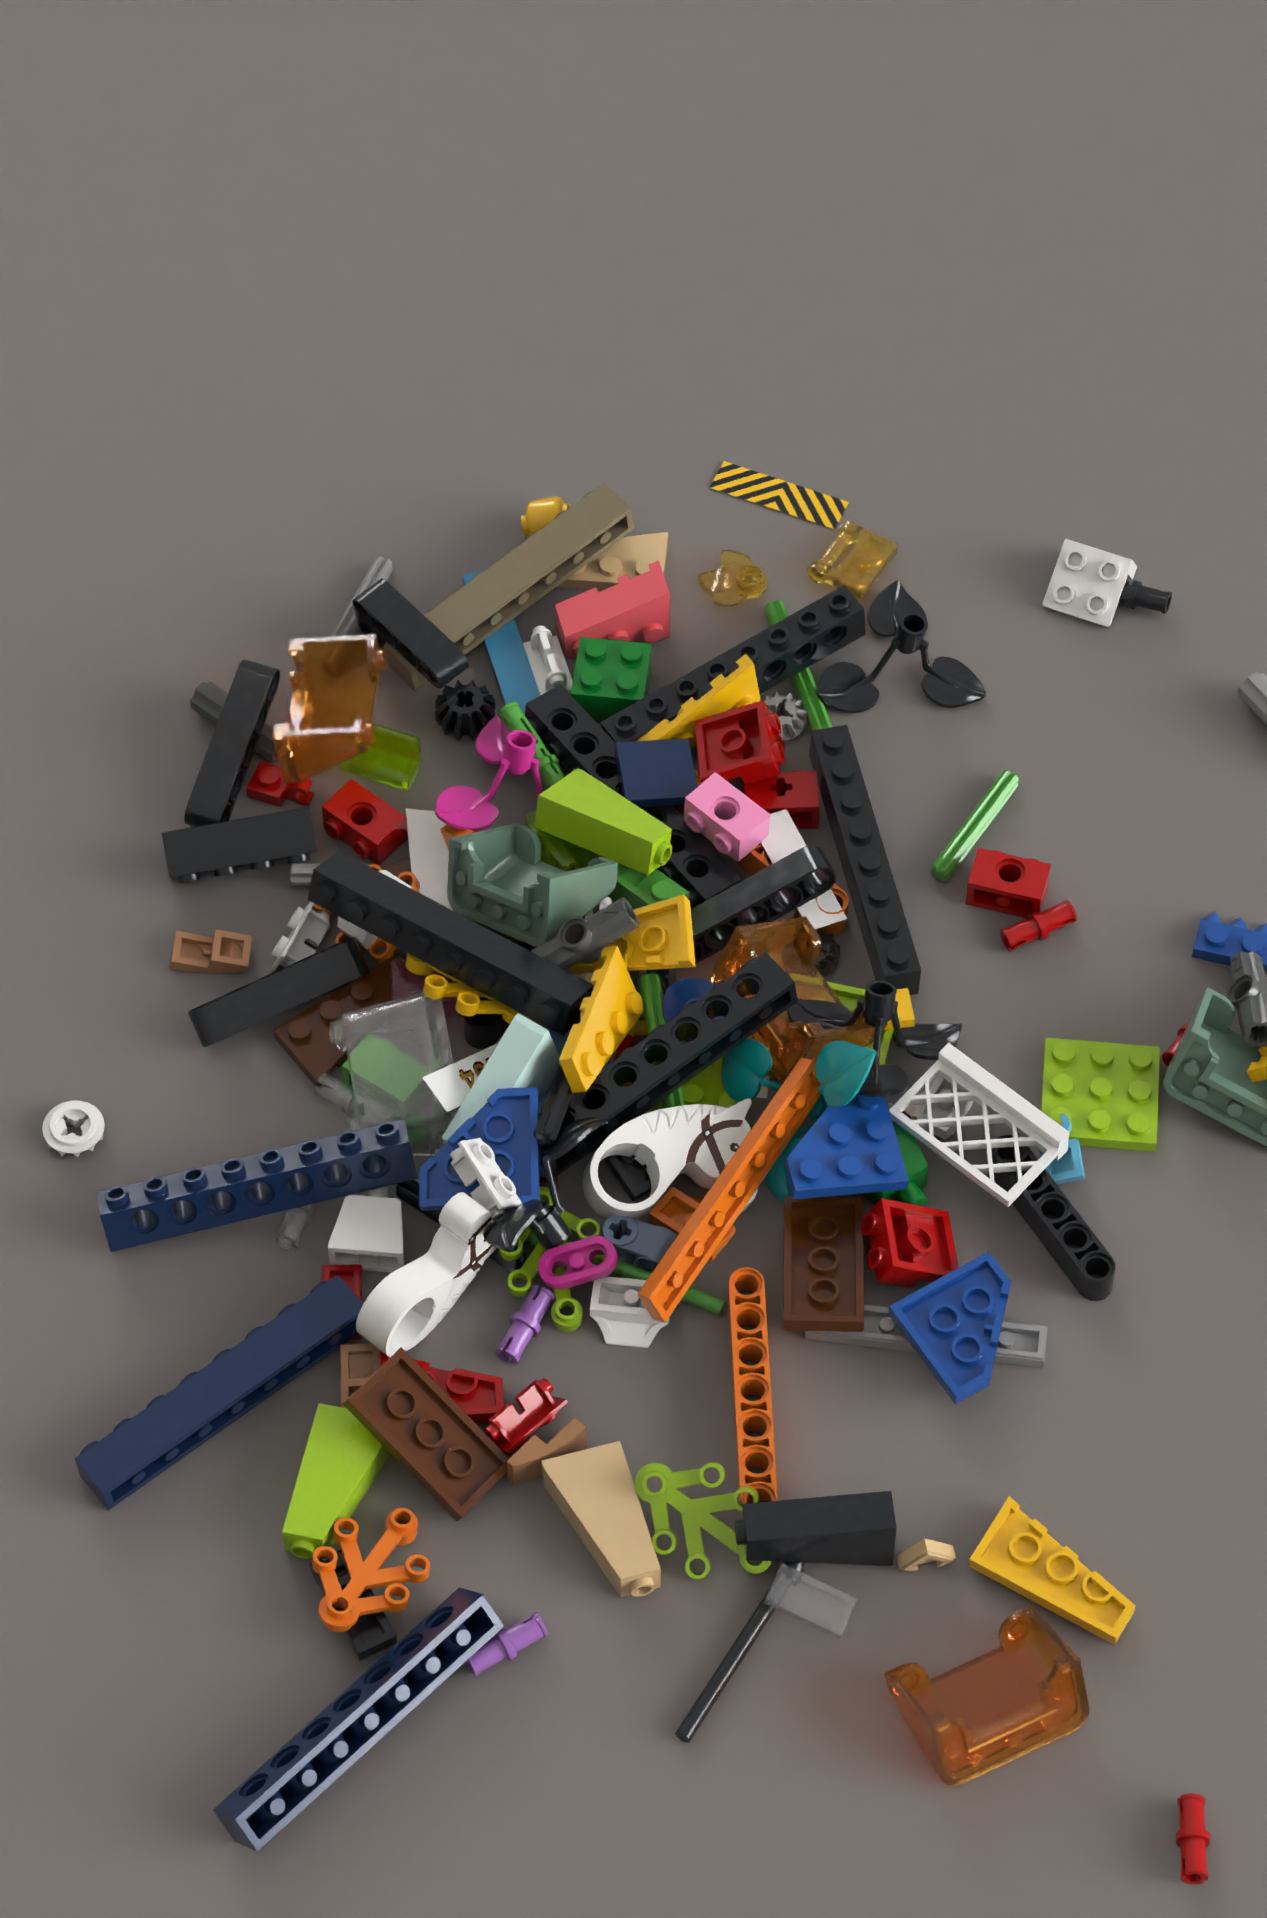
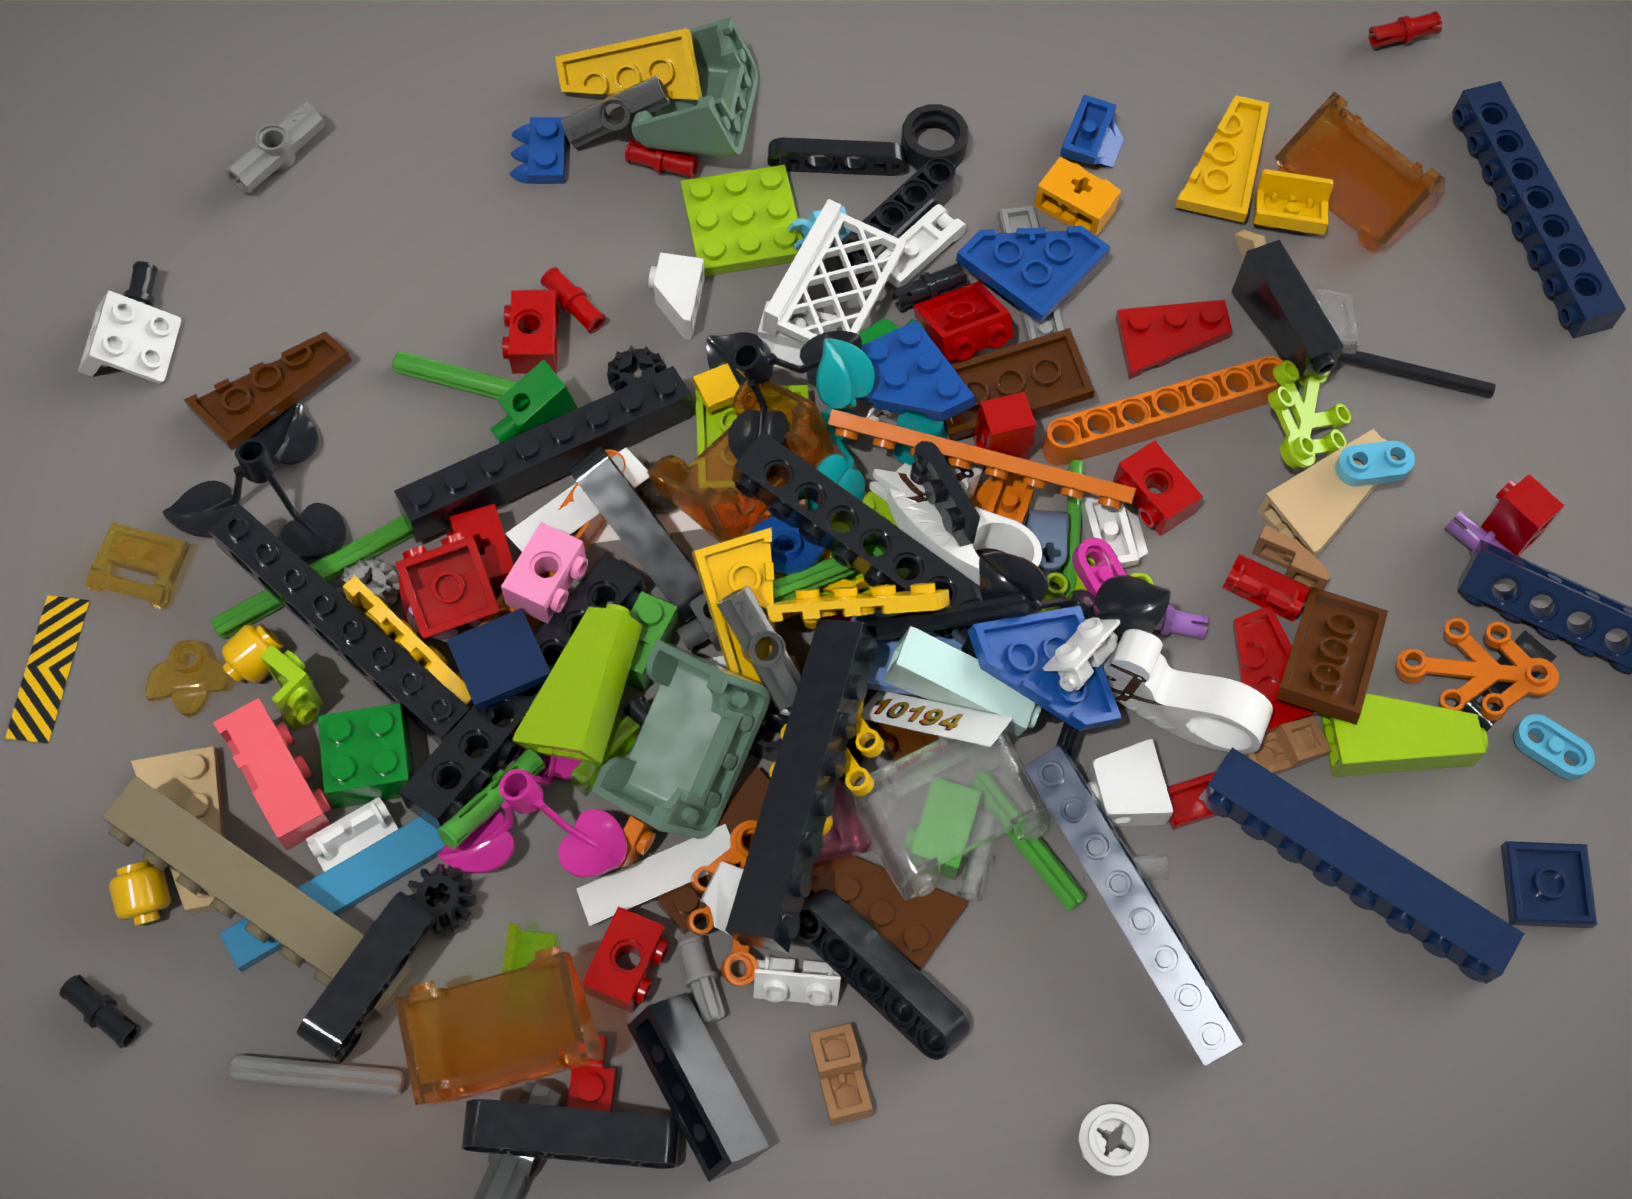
camera: 110 degrees left, 10 degrees up
(145, 1562) = (1548, 884): none -> dark blue tile
(268, 1617) = (1553, 745): none -> medium azure plate
(462, 487) = (100, 1011): none -> black pin
(513, 1667) = (1522, 514): none -> red brick
(616, 1543) = (1377, 461): none -> medium azure plate
(654, 1376) = (1155, 469): none -> red brick
(687, 636) = (297, 698): none -> lime bracket
(694, 1131) = (945, 492): none -> black plate
(735, 620) = (244, 651): none -> yellow head
(764, 1230) = (1005, 426): none -> red brick
(849, 1437) = (1163, 332): none -> red wing
(880, 1889) = (1538, 210): none -> dark blue brick
(912, 850) = (532, 402): none -> green torso
(956, 968) = (621, 366): none -> black gear
(966, 1230) = (928, 286): none -> black pin
(969, 1612) = (1292, 202): none -> yellow bracket
(1001, 666) = (253, 401): none -> reddish brown wing
(1018, 1011) = (678, 289): none -> white slope
(1021, 1241) = (924, 244): none -> white plate
(1039, 1401) = (1077, 196): none -> light orange brick
(1118, 1445) = (1093, 133): none -> blue slope
(1147, 1315) = (934, 117): none -> black tyre
(1153, 1192) = (875, 159): none -> black beam

